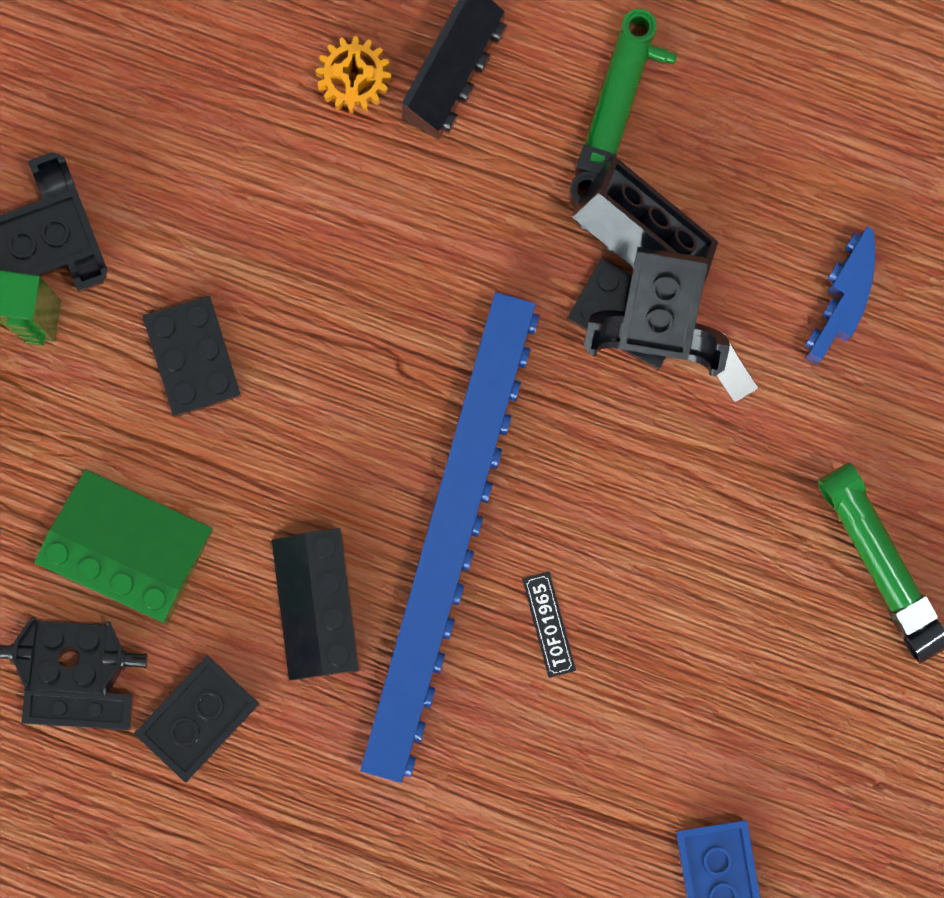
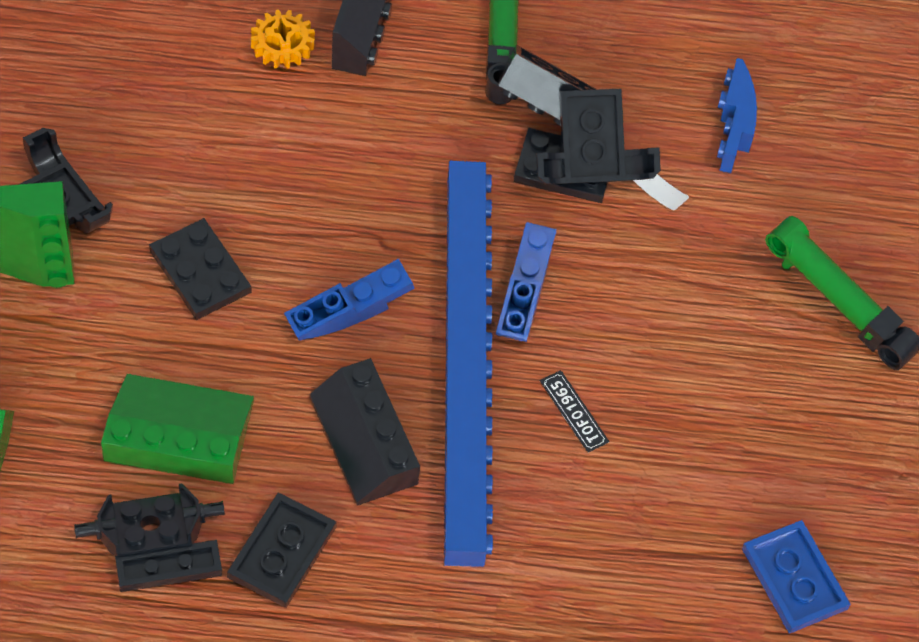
camera: 15 degrees left, 25 degrees down
(339, 442) = (349, 305): none -> blue slope
(538, 464) = (526, 282): none -> blue slope

